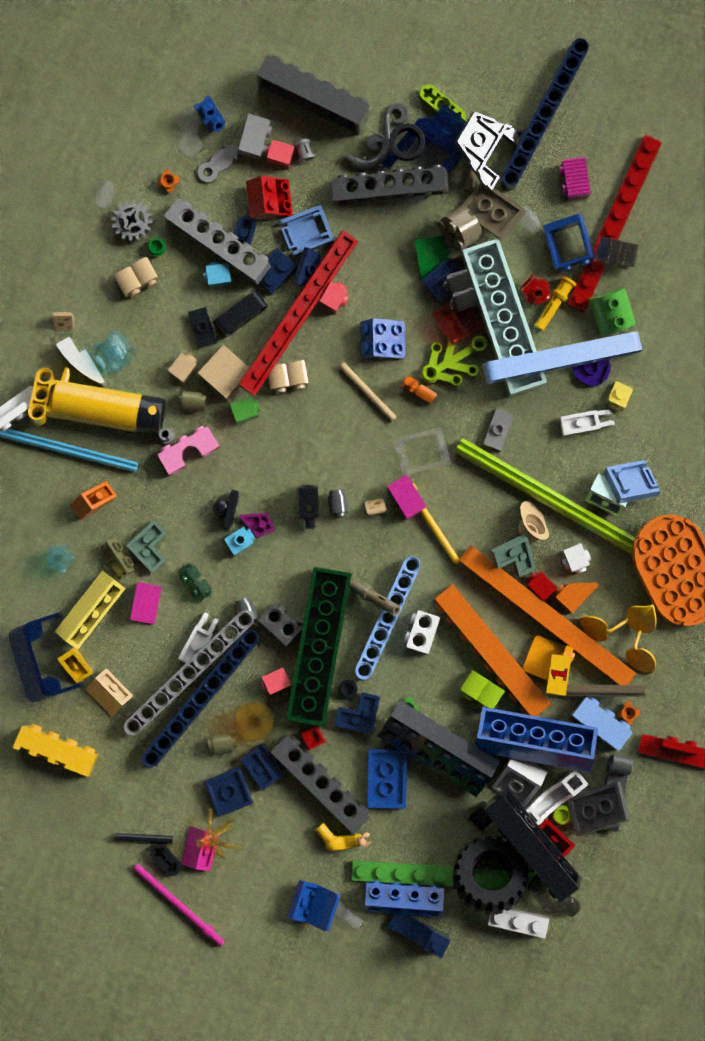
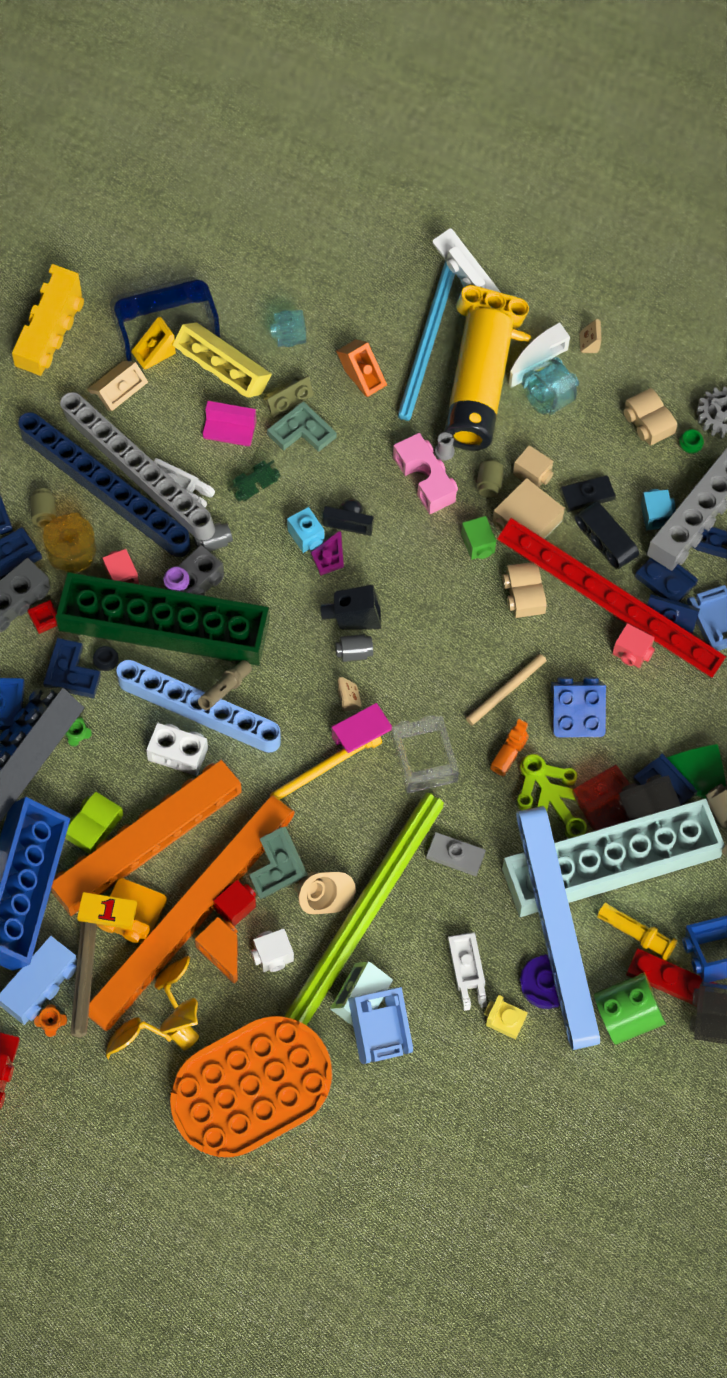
camera: 90 degrees right, 20 degrees down
(290, 637) = (176, 579): none -> medium lavender plate
(533, 284) = (654, 902): red brick -> none

